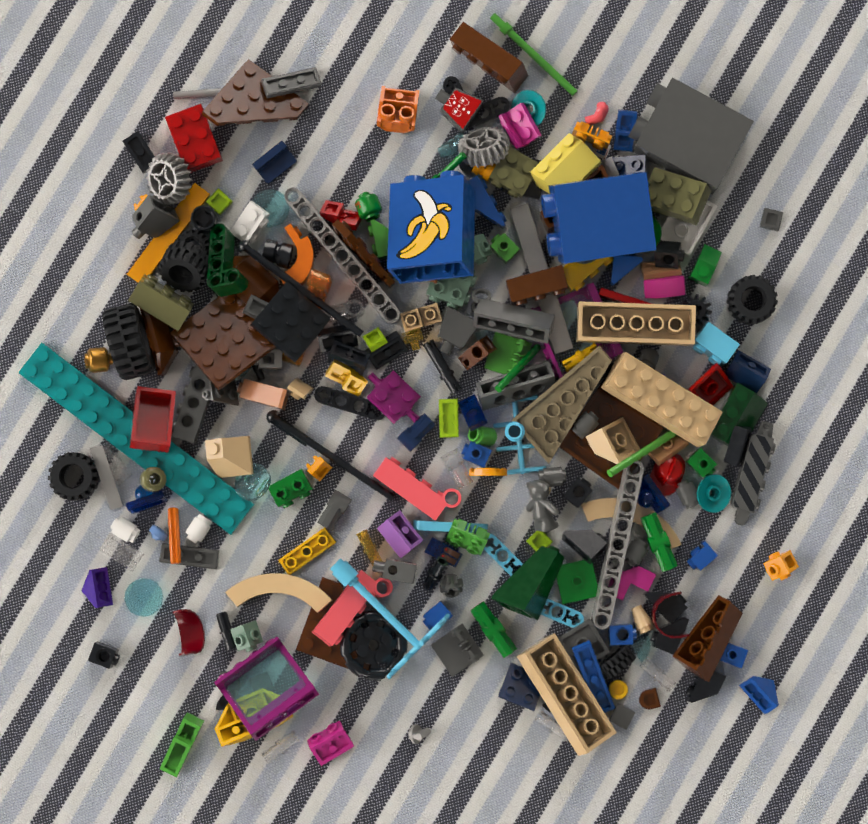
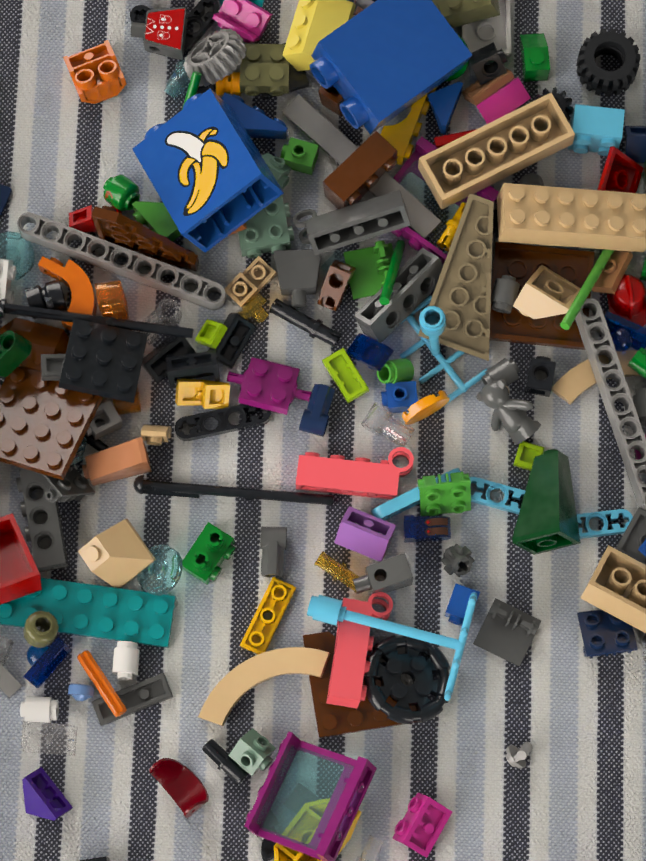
camera: 30 degrees left, 10 degrees down
(143, 597) = (105, 778): clear light blue tile -> none
(319, 468) = (229, 512): light orange tile -> none
(435, 573) = (431, 556): black axle -> none
(493, 629) = (535, 584): green piece -> none
(576, 581) = (598, 477): green plate -> none
(585, 543) = (582, 427): black slope -> none

